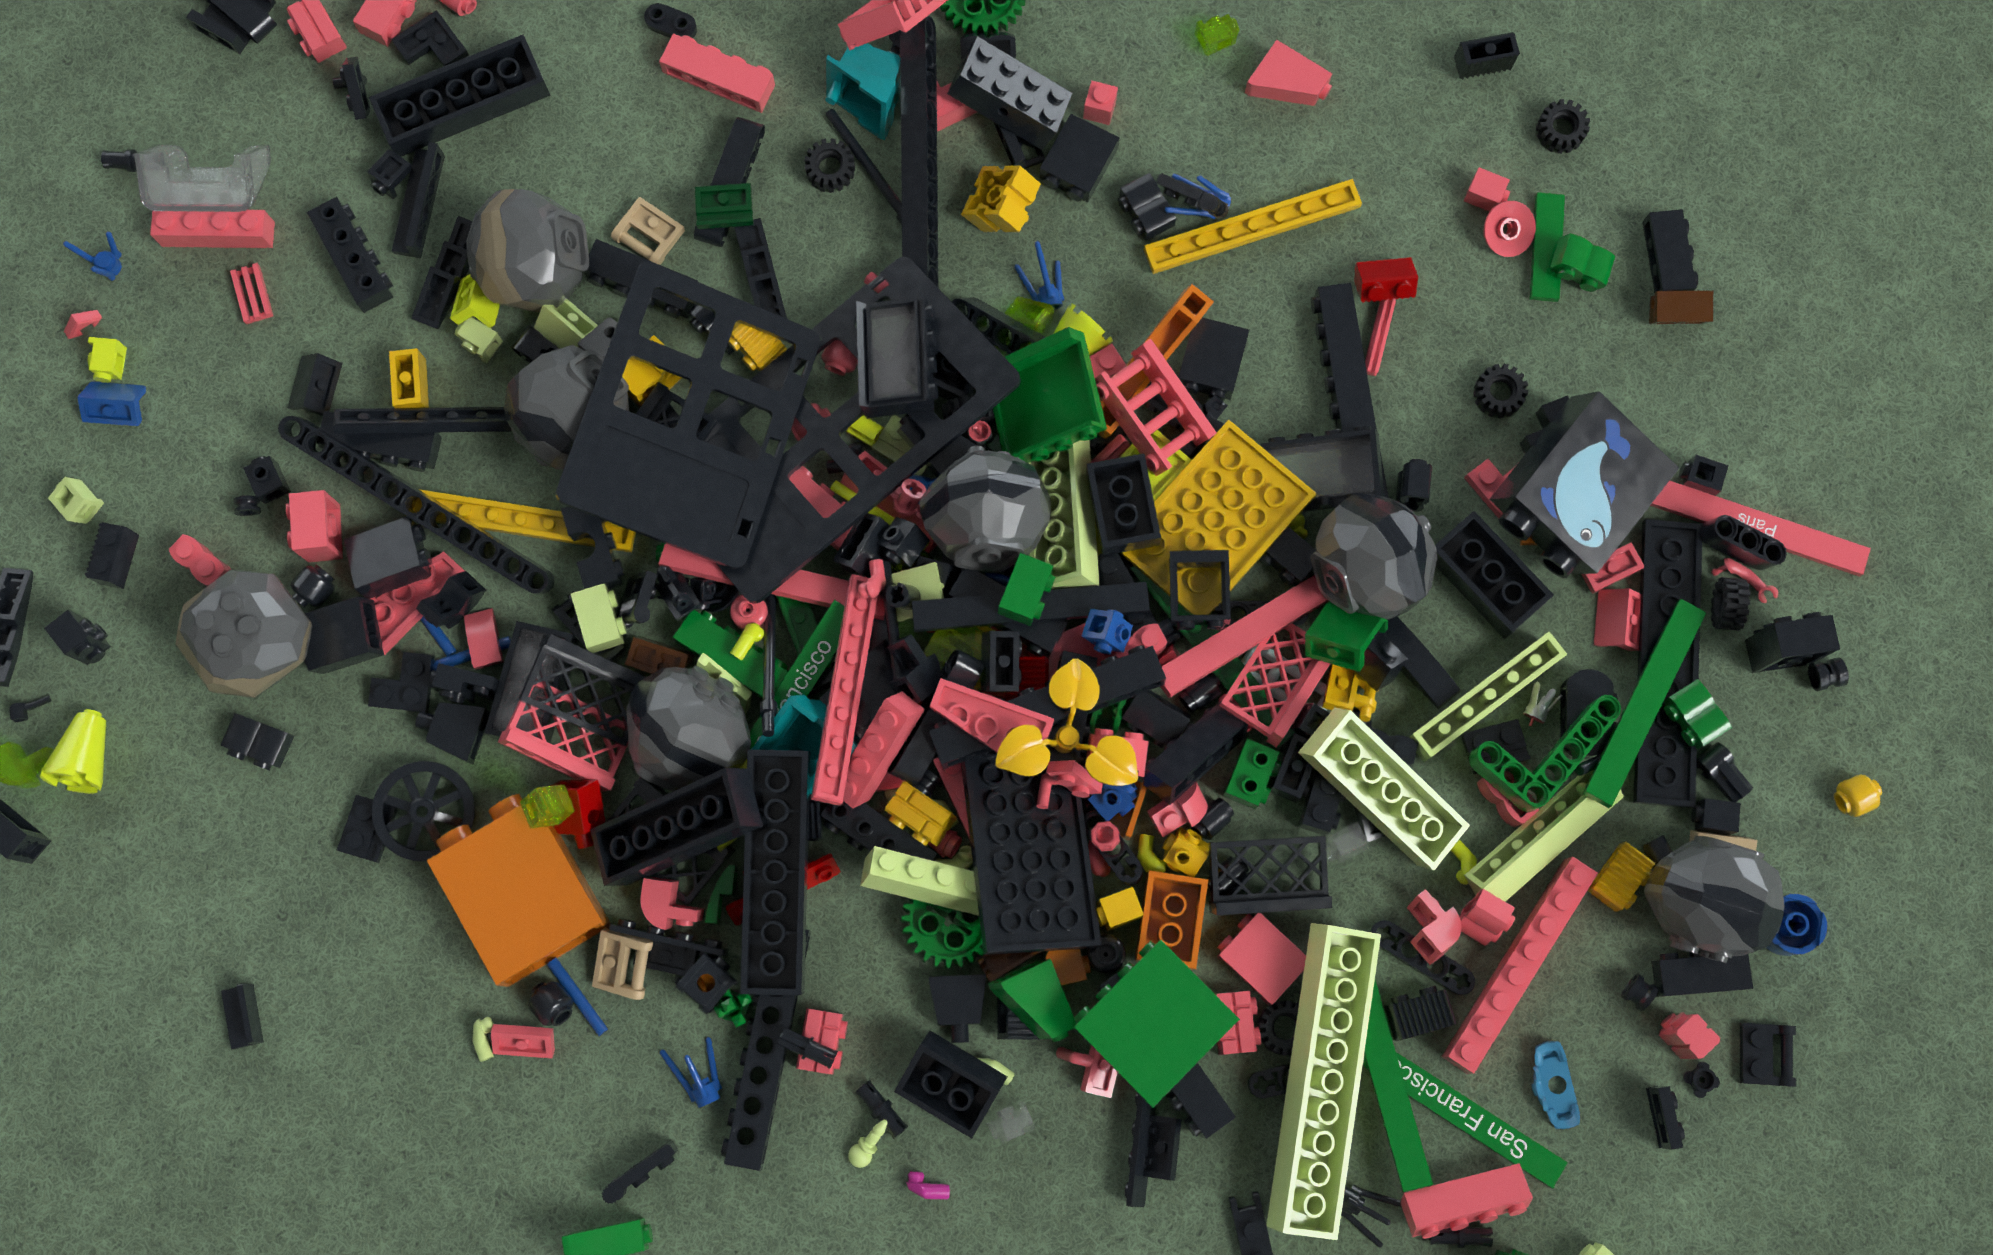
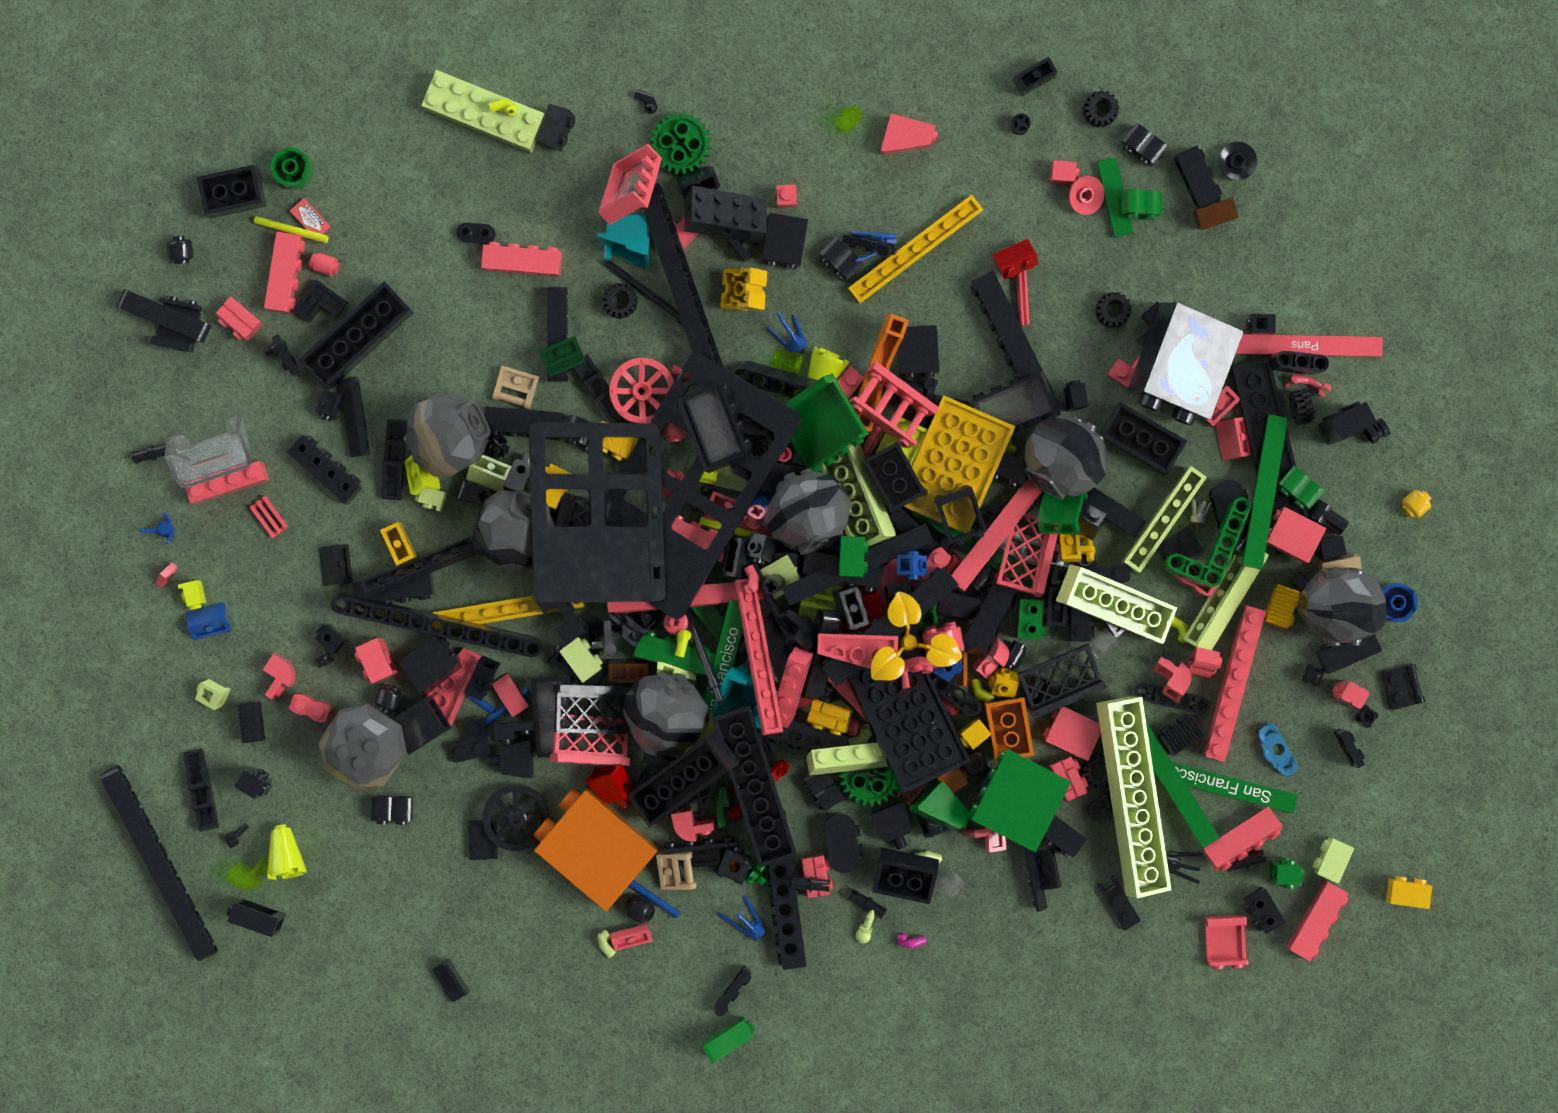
camera: 20 degrees left, 10 degrees up
(183, 505) = (283, 672): none -> coral brick
(547, 806) = (597, 792): clear neon green brick -> none
(592, 298) = (497, 446): none -> black gear
(812, 281) = (646, 386): none -> coral wheel
(876, 919) = (824, 789): none -> black brick
(876, 1005) = (842, 842): none -> black brick
(1105, 836) = (951, 691): coral tile -> none
(1447, 105) = (1022, 121): none -> black wheel
(1608, 189) = (1144, 145): none -> black brick
(1670, 778) = (1294, 534): none -> coral brick
(1737, 240) = (1244, 154): none -> black dish

